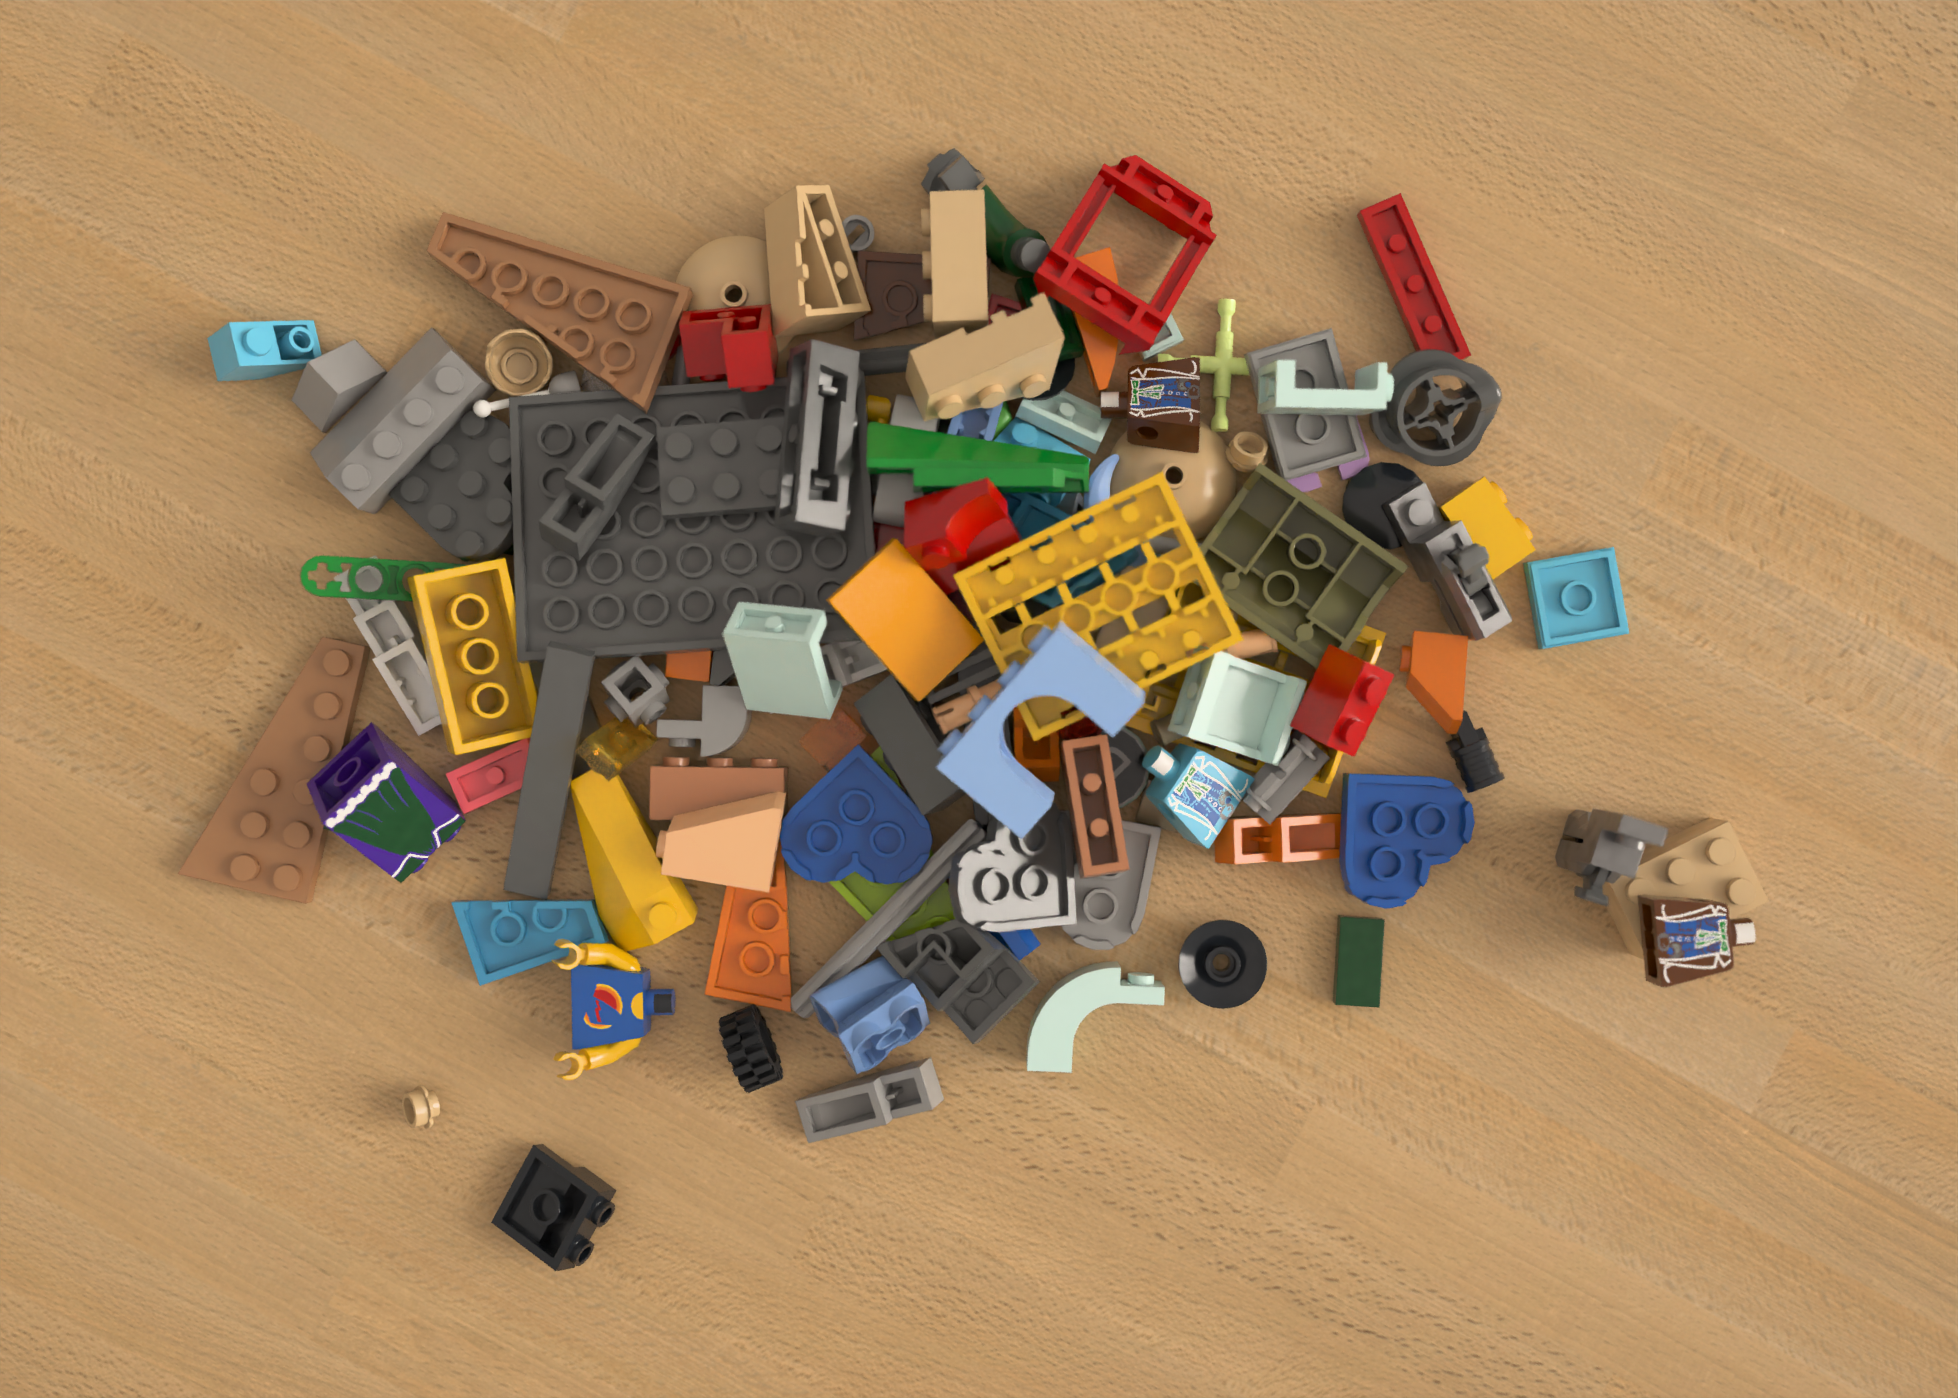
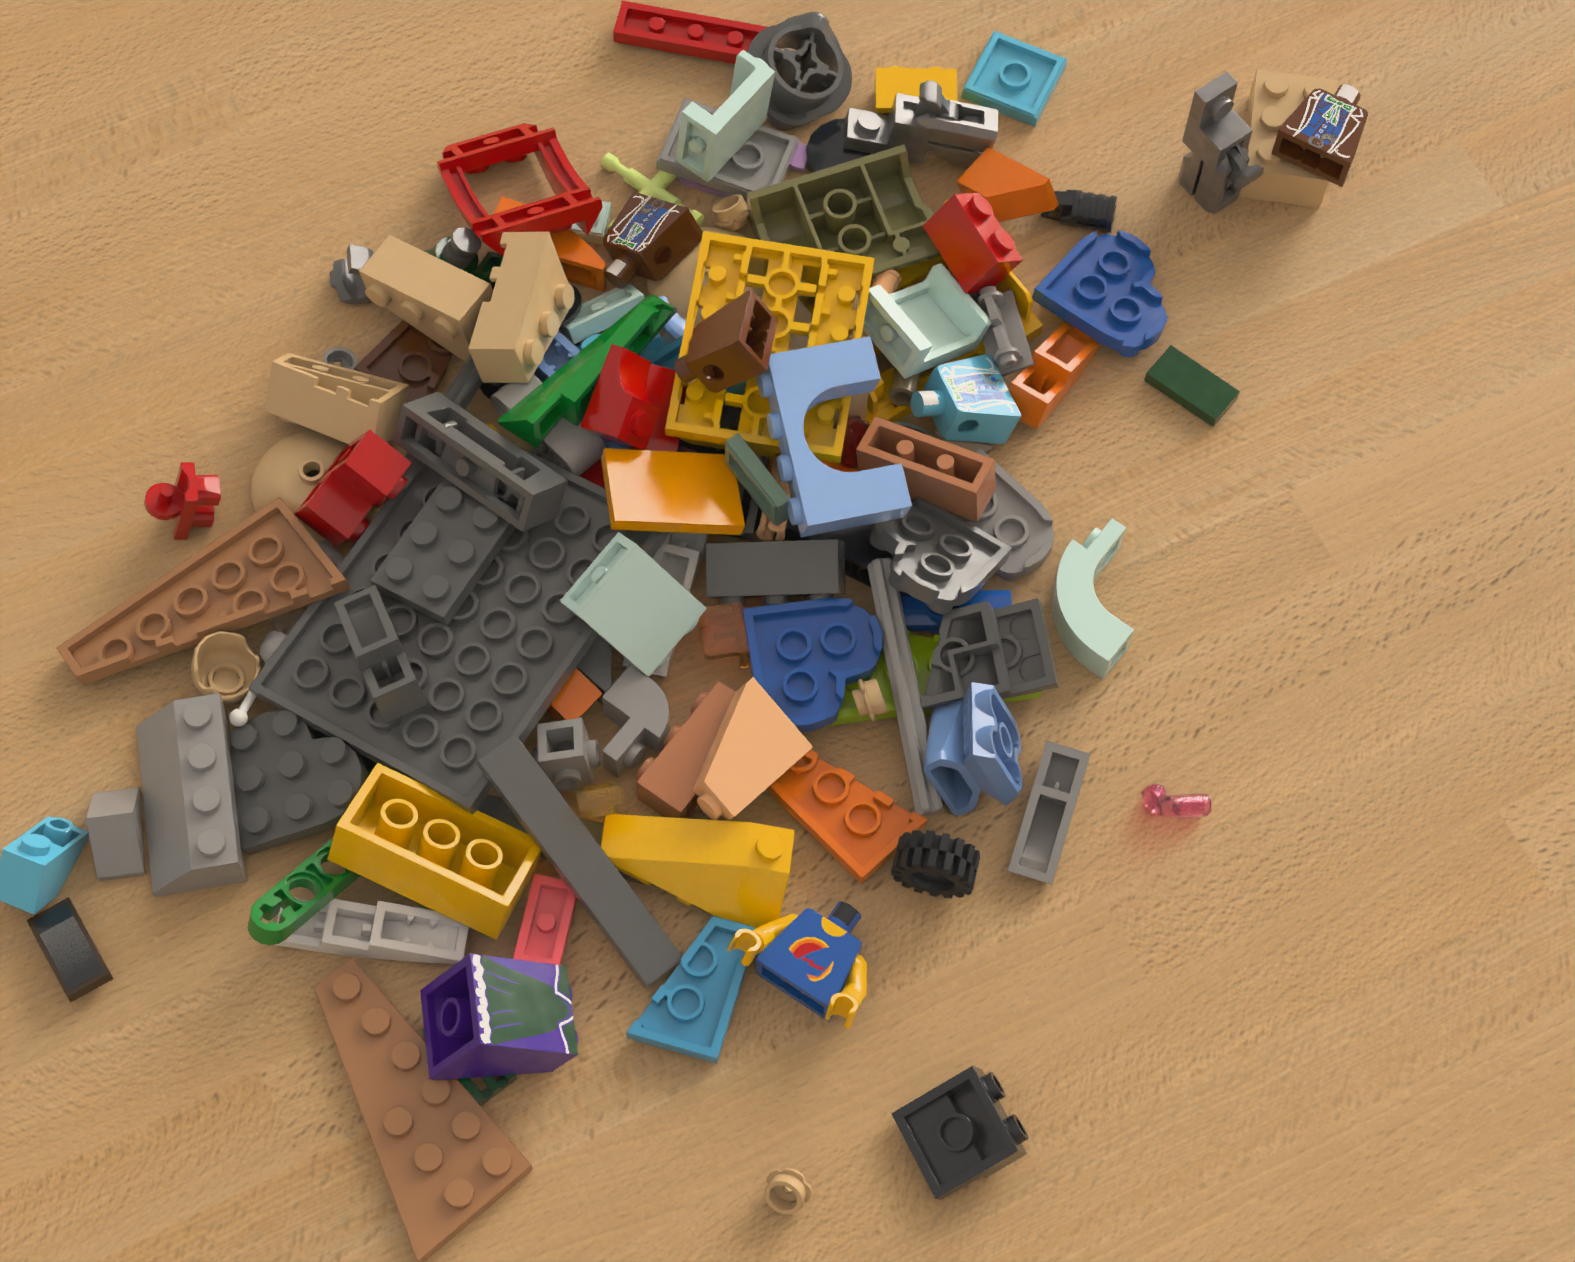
camera: 55 degrees left, 25 degrees down
(216, 428) = (69, 949): none -> slope
(619, 199) = (189, 500): none -> red hips
(852, 901) = (869, 699): none -> tan plate
(944, 1195) = (1177, 806): none -> clear pink arm
(962, 685) = (756, 479): none -> sand green tile
(1050, 588) = (730, 345): none -> reddish brown torso
(1235, 982) = (1126, 459): black dish -> none

